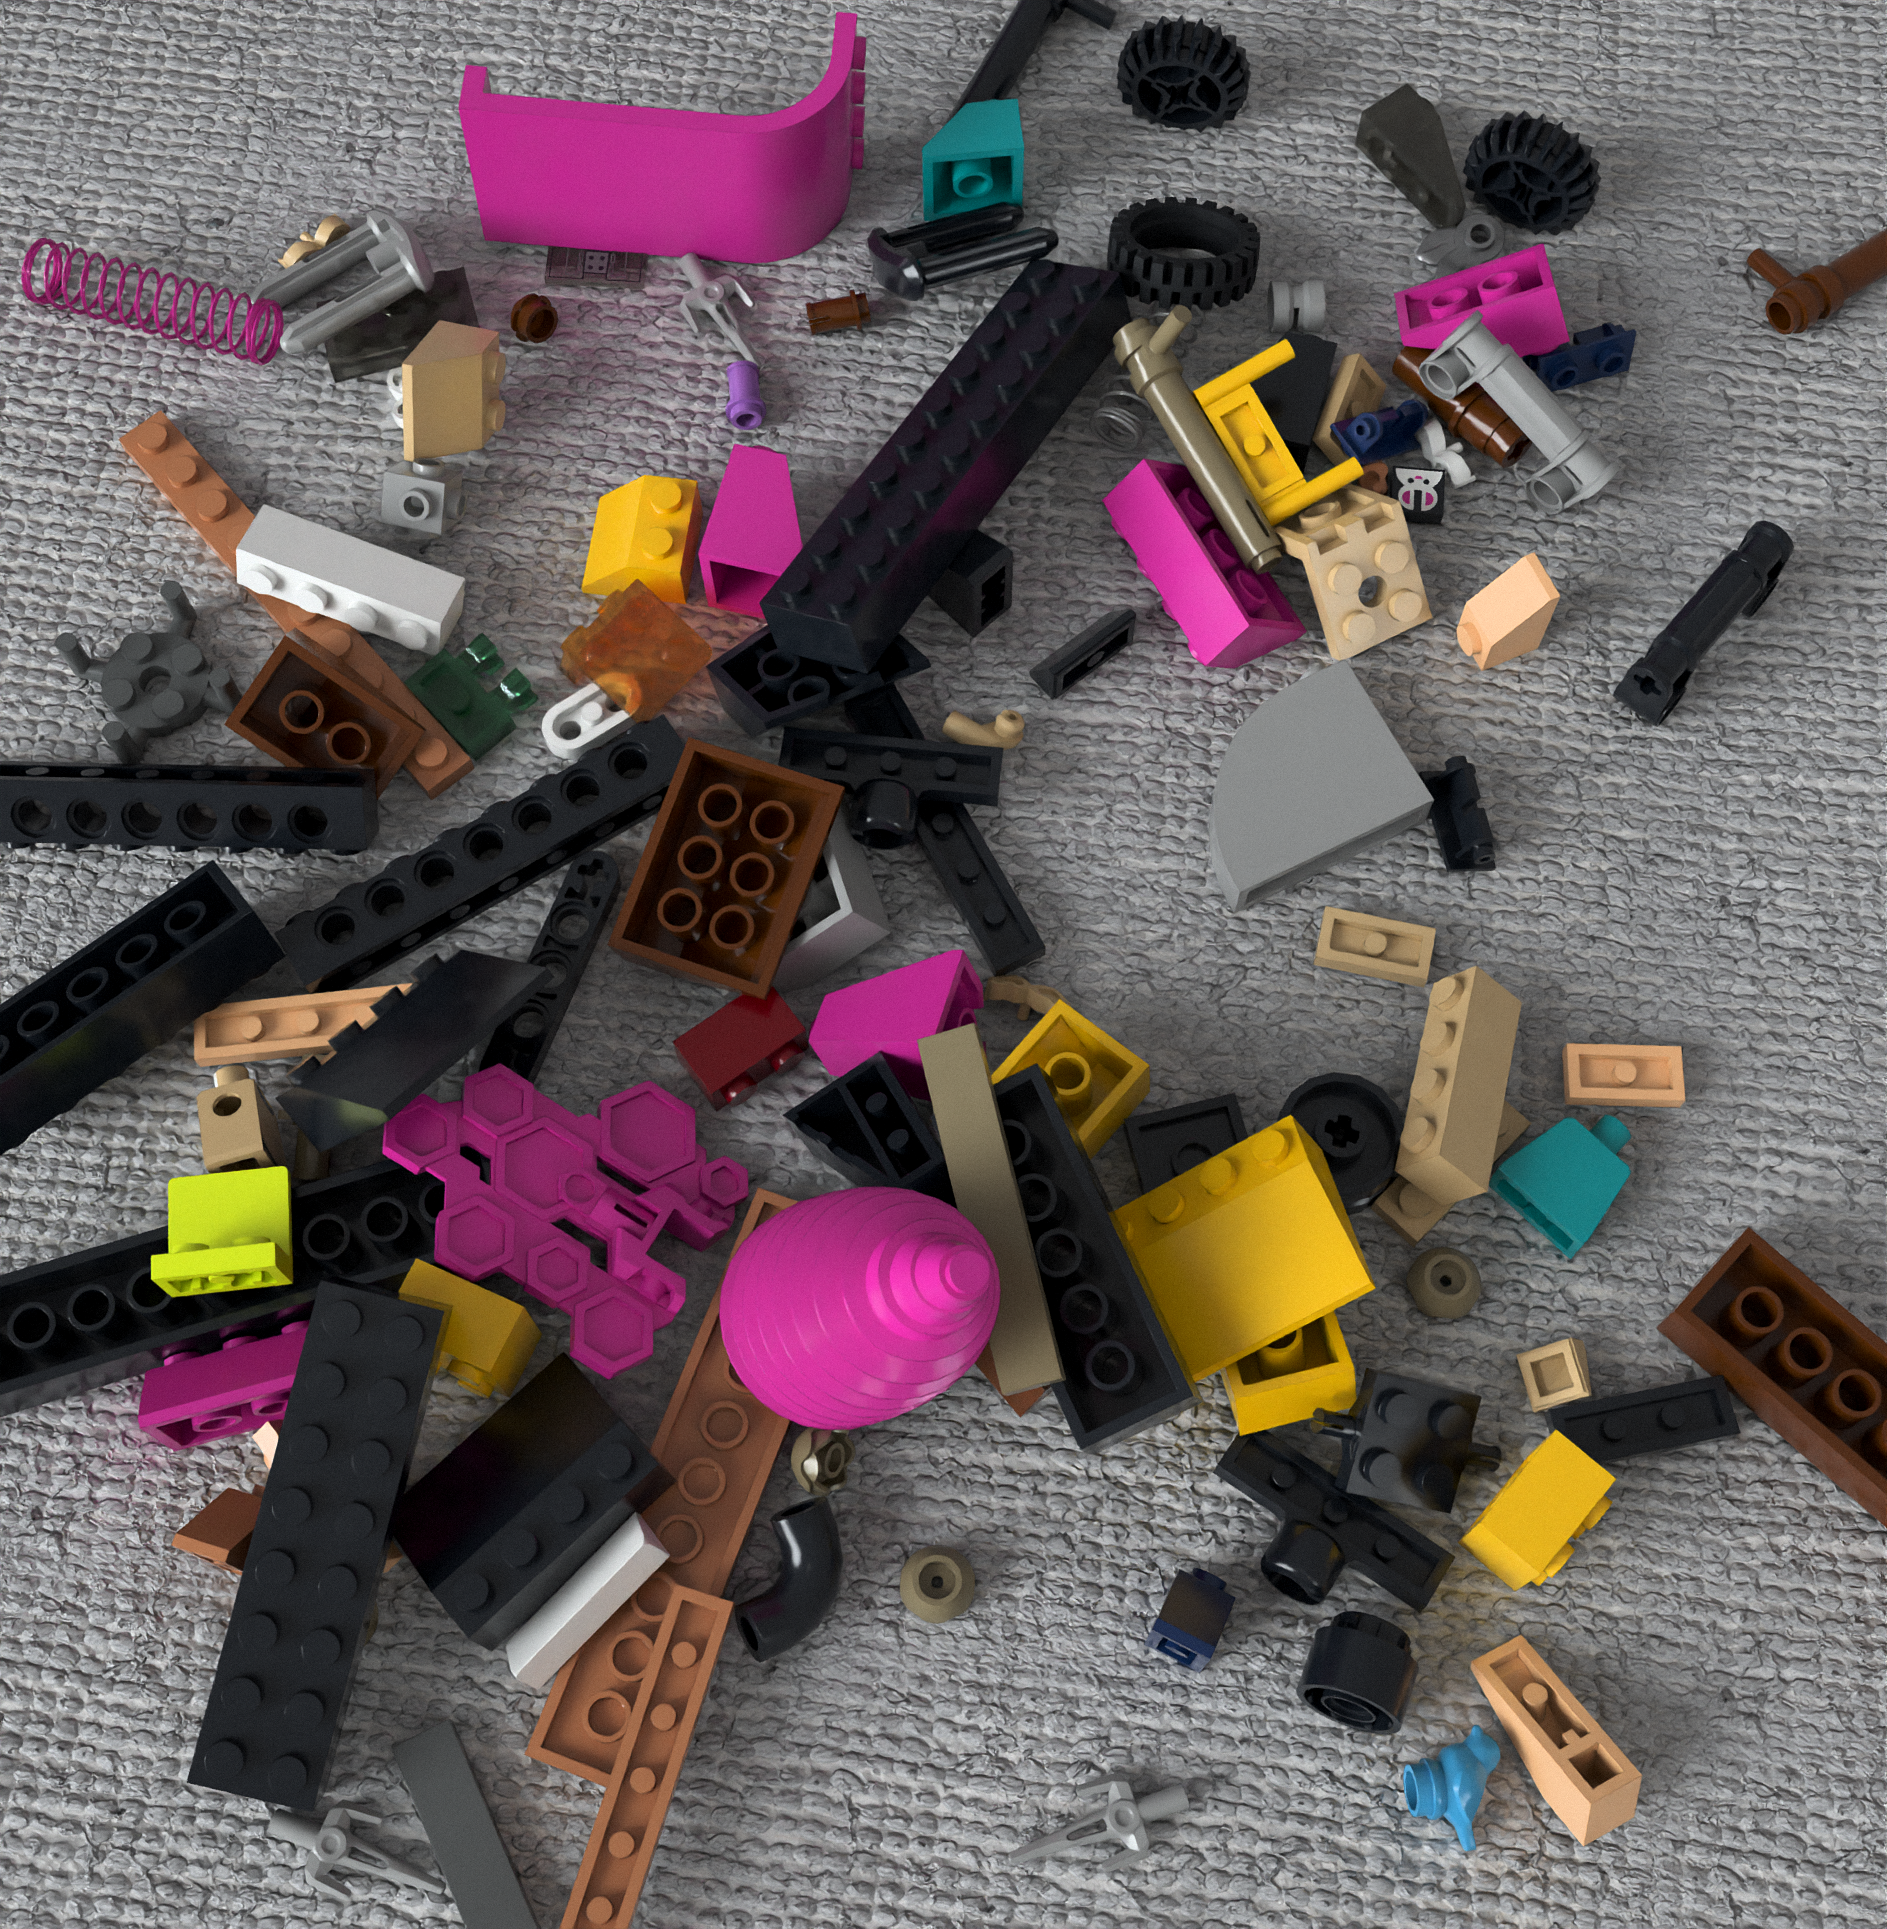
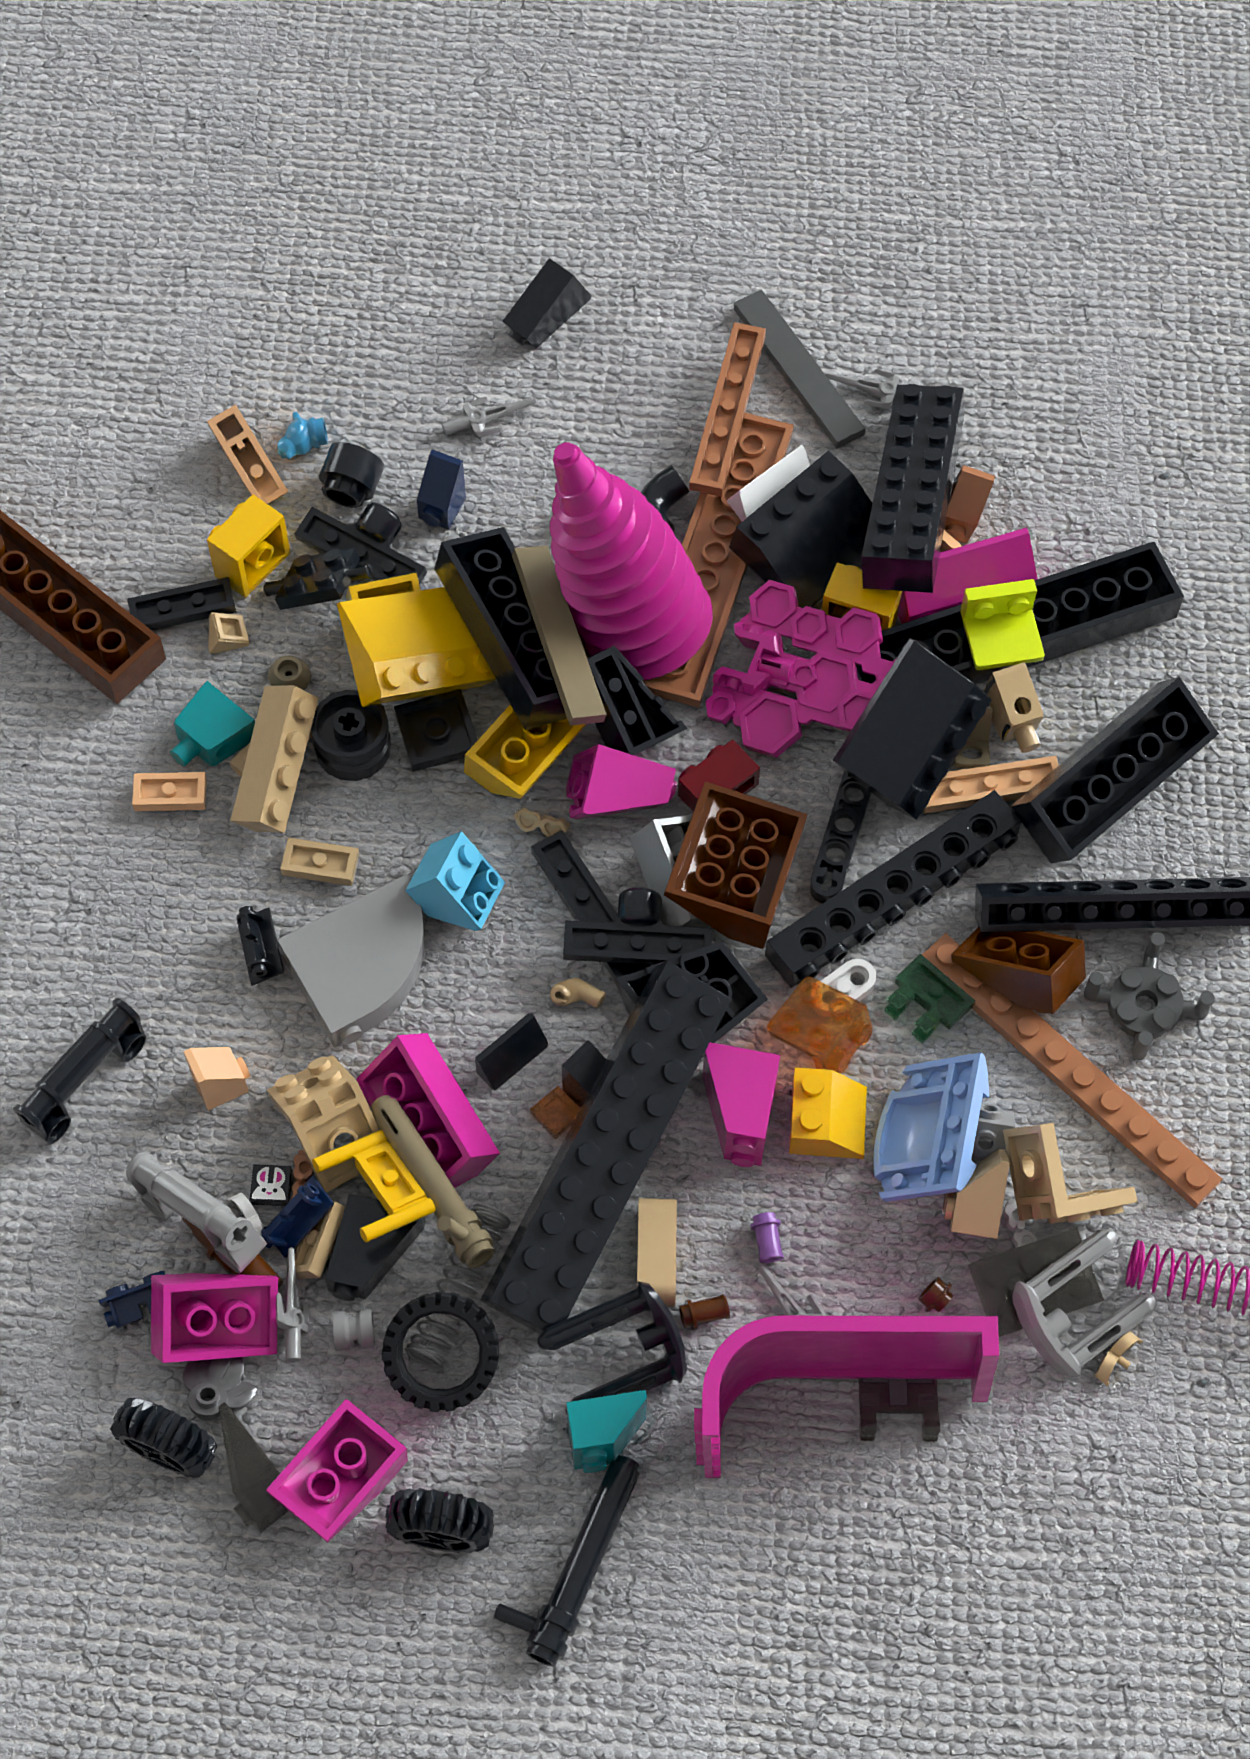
camera: 175 degrees right, 5 degrees down
(349, 580) = (1030, 1059): white brick -> none
(355, 390) = (1041, 1184): none -> tan bracket
(502, 480) = (931, 1128): none -> light blue slope
(893, 374) = (658, 1246): none -> tan beam
(1030, 573) = (555, 1112): none -> clear orange tile
(1164, 880) = (455, 883): none -> medium azure slope
(1307, 133) = (339, 1471): none -> dark pink slope
(1376, 317) = (292, 1319): none -> light grey piece

